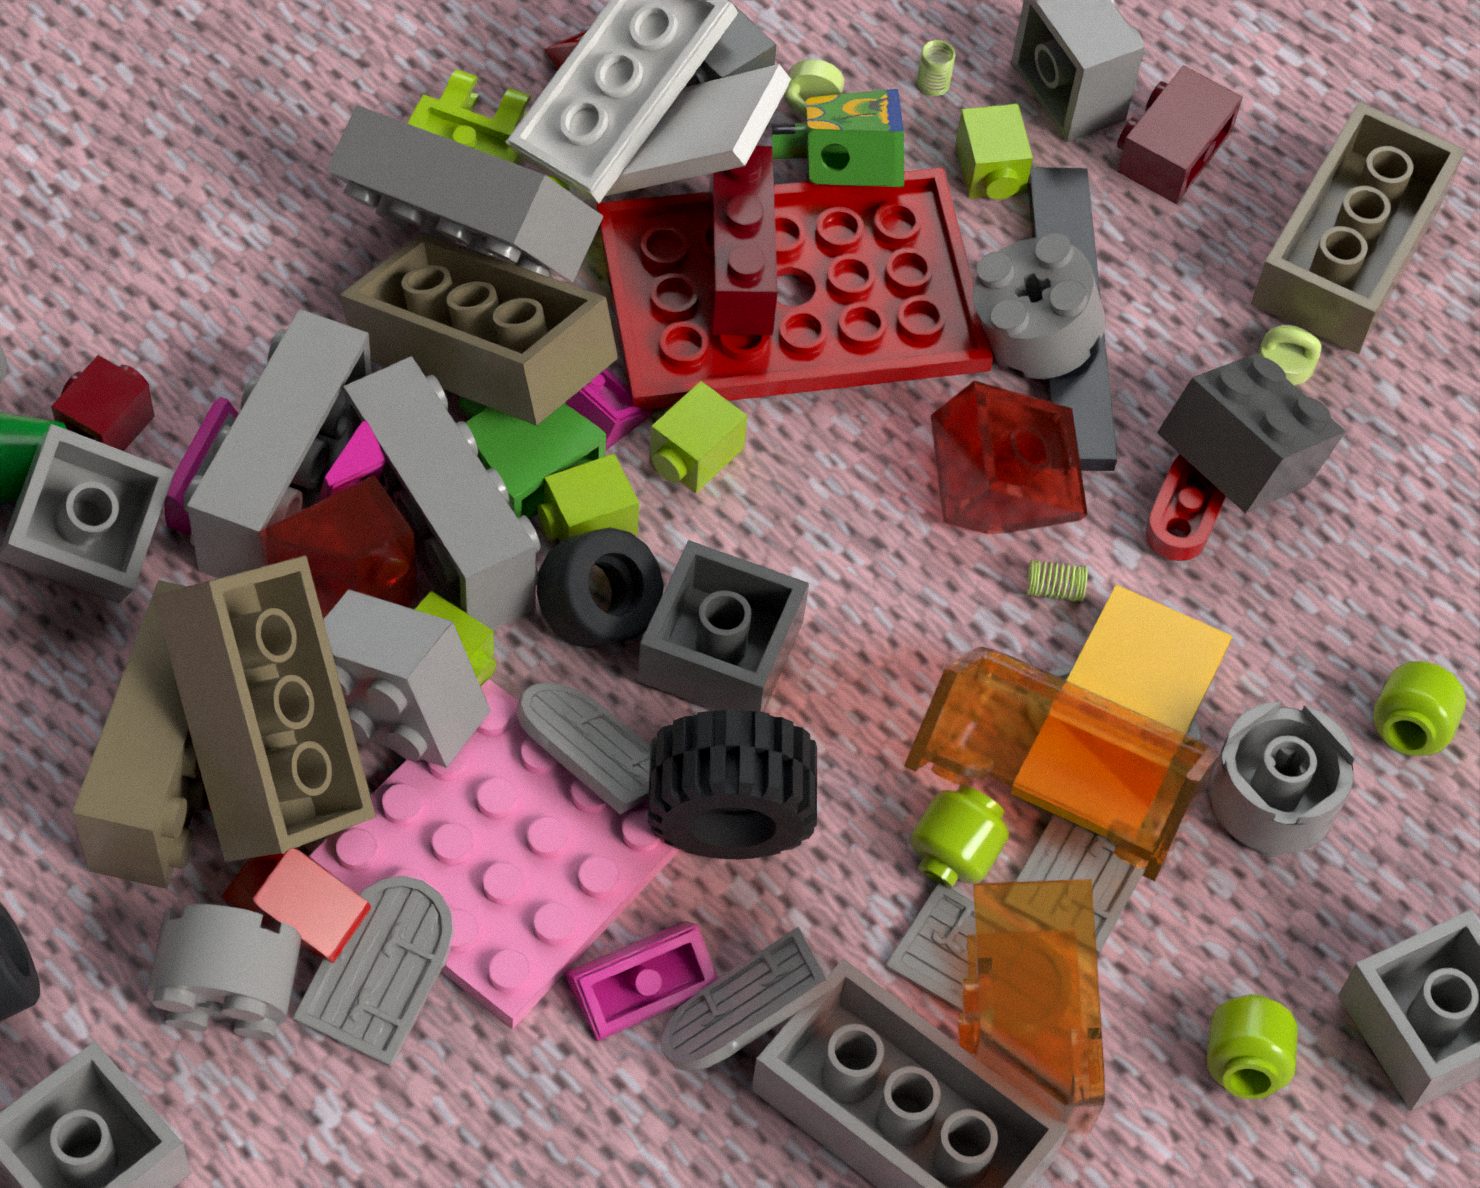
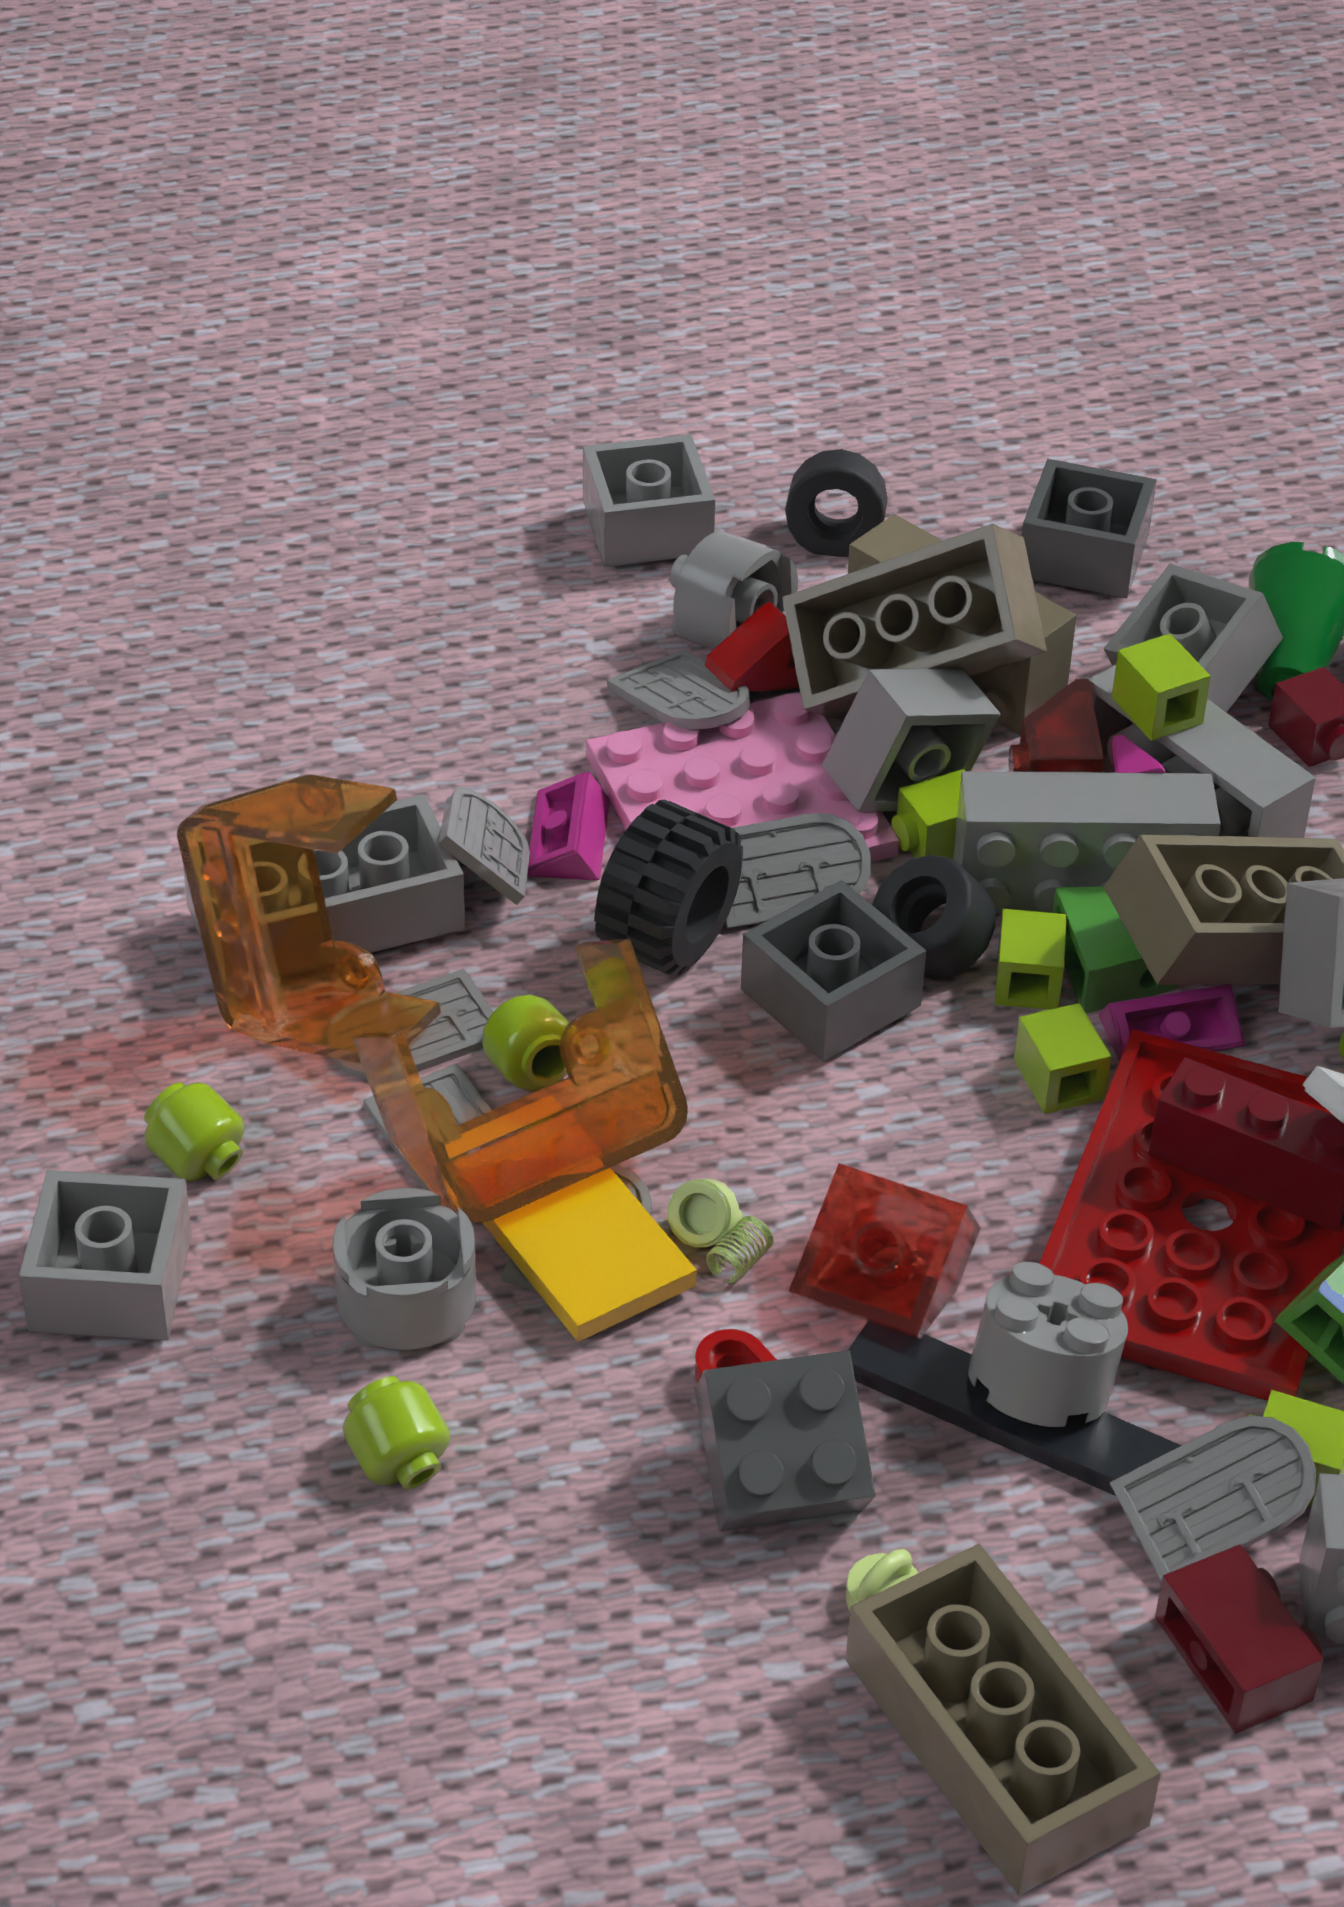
camera: 125 degrees right, 15 degrees down
(271, 441) = (1160, 686): none -> lime brick
(1046, 613) = (703, 1212): none -> yellowish green tile
(1079, 176) = (1218, 1491): none -> light grey window

